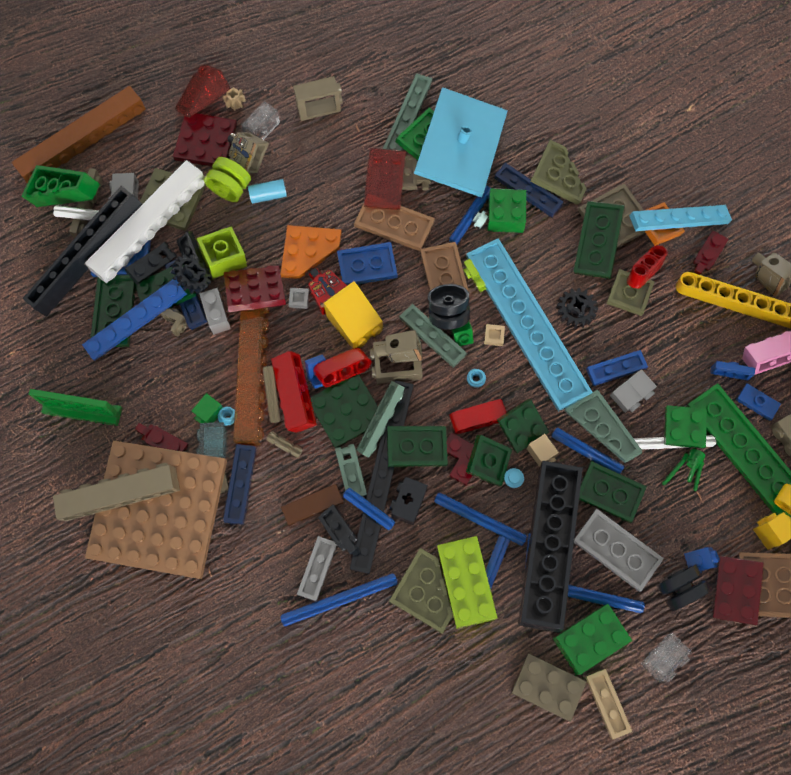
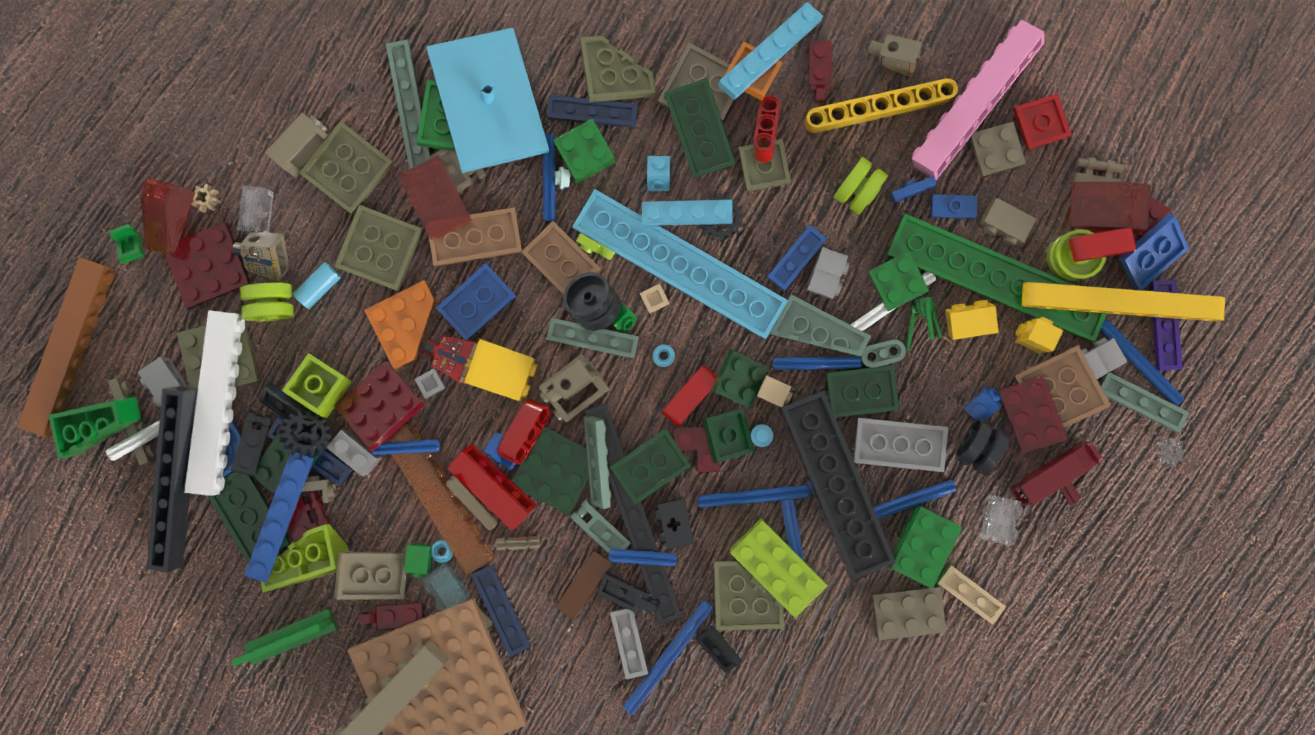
camera: 30 degrees left, 15 degrees up
(137, 364) = (307, 558): none -> lime wedge
(144, 338) = (302, 520): none -> dark red plate
(166, 97) = (128, 243): none -> green bracket
(166, 398) = (370, 575): none -> dark tan plate
(253, 325) = (407, 447): none -> blue axle
(325, 192) = (378, 248): none -> olive plate
(338, 132) = (346, 168): none -> olive plate
(381, 617) = (718, 649): none -> black plate
(549, 255) = (658, 173): none -> medium azure bracket
(555, 288) = (687, 212): none -> medium azure plate
(642, 473) = (882, 353): none -> sand green plate
(695, 342) = (863, 188): none -> lime wheel
(728, 489) = (971, 320): none -> yellow brick
(735, 650) = (1058, 475): none -> dark red piece

